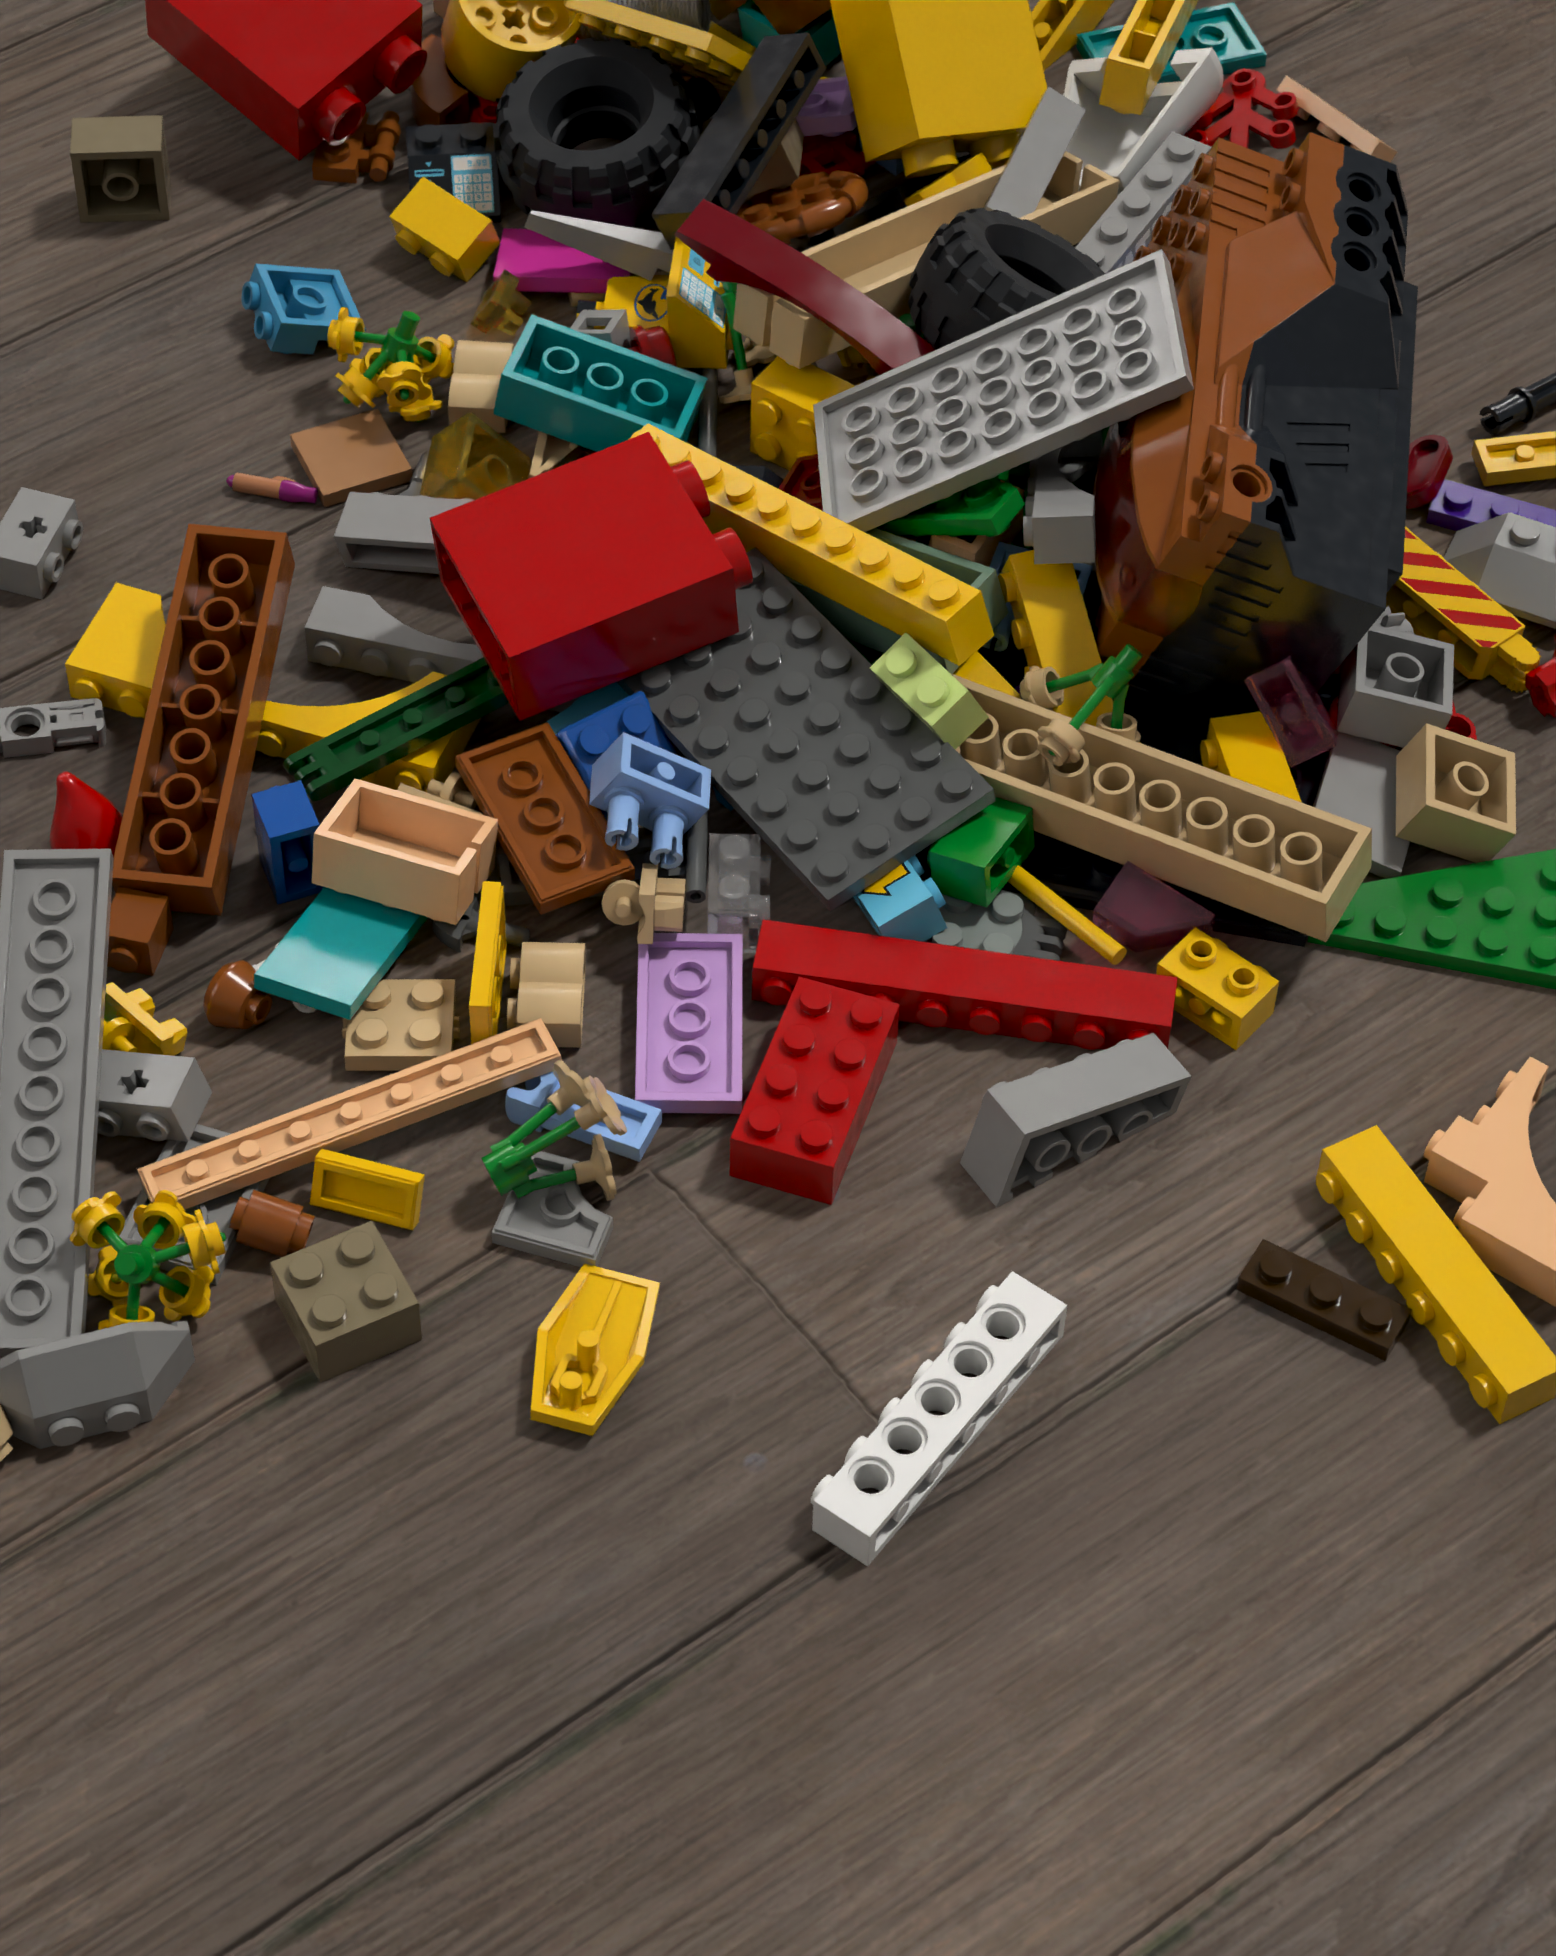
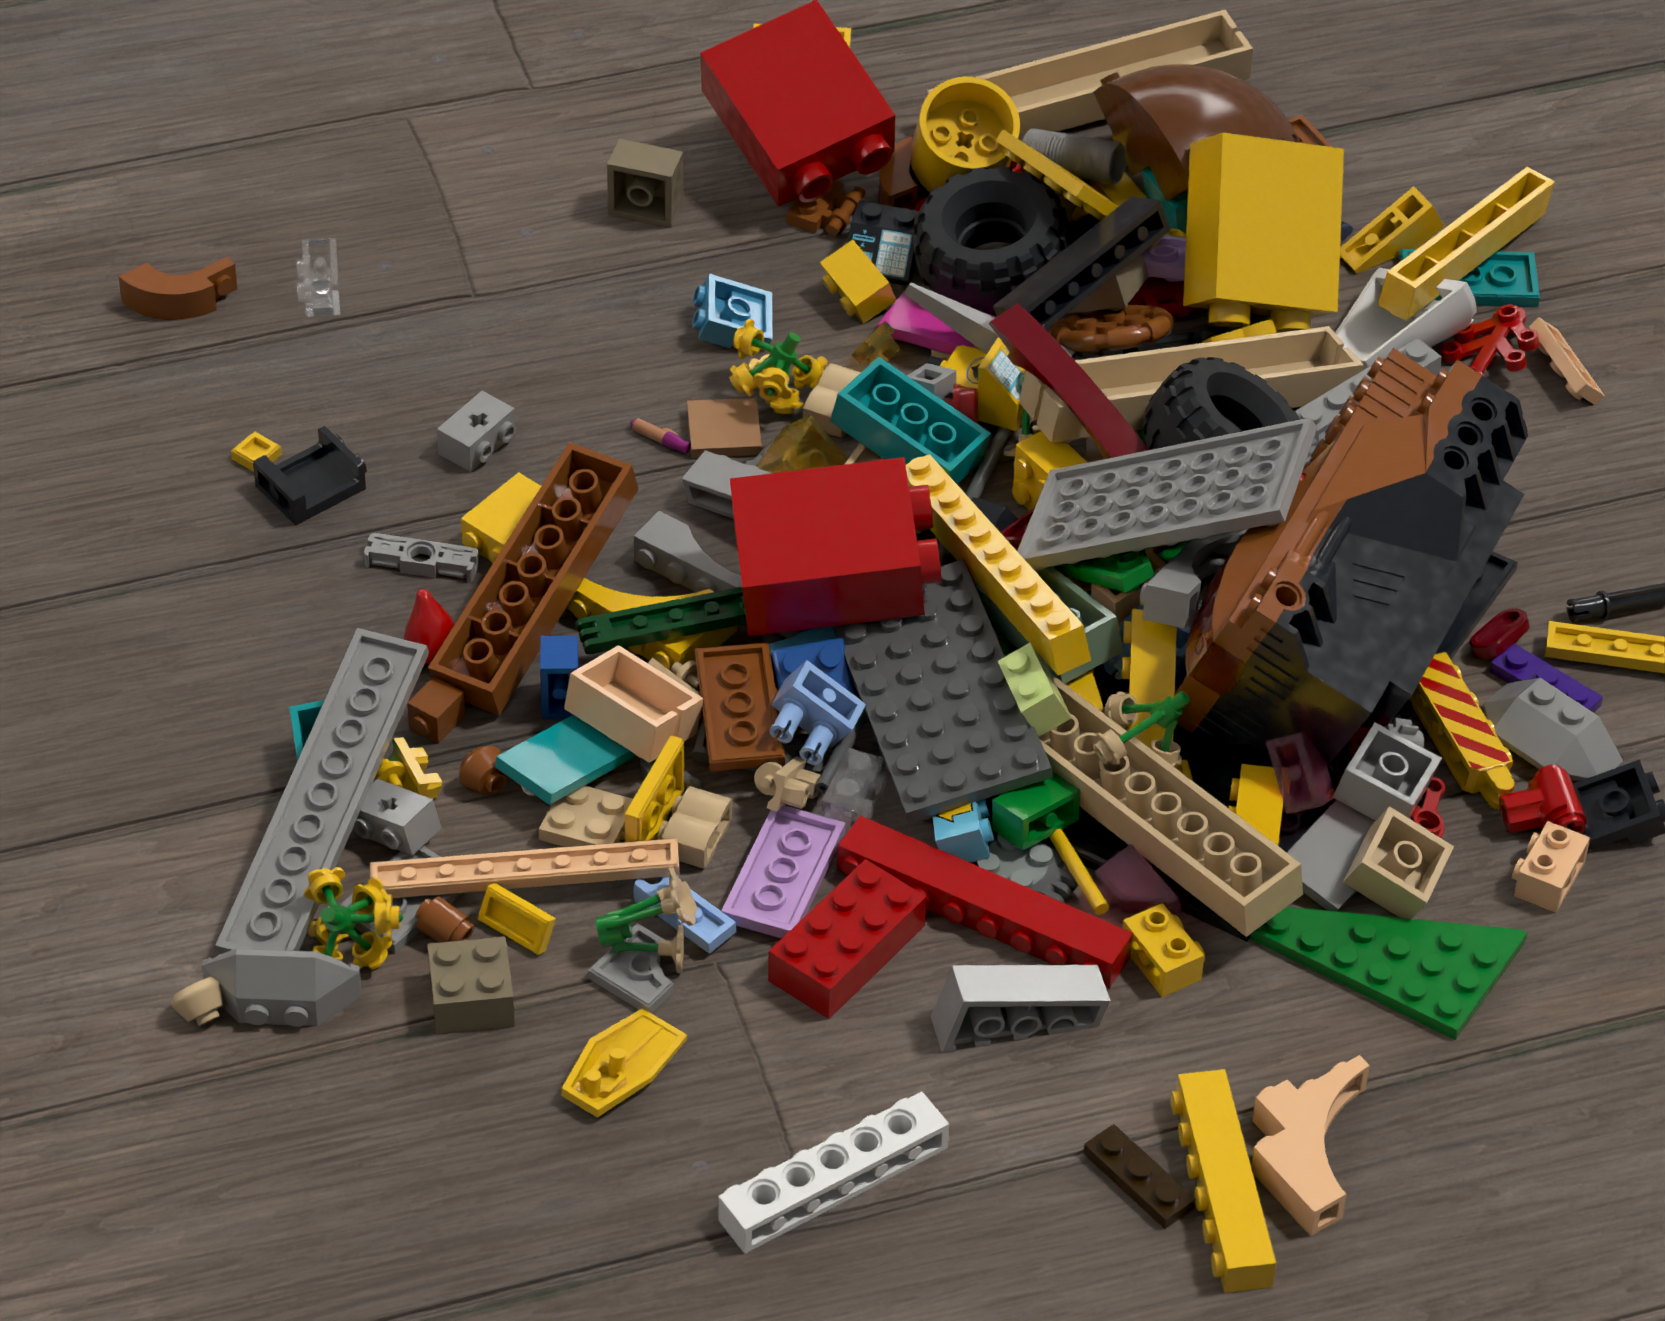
camera: 20 degrees right, 5 degrees down
(1036, 155) = (1304, 332): light grey tile -> none

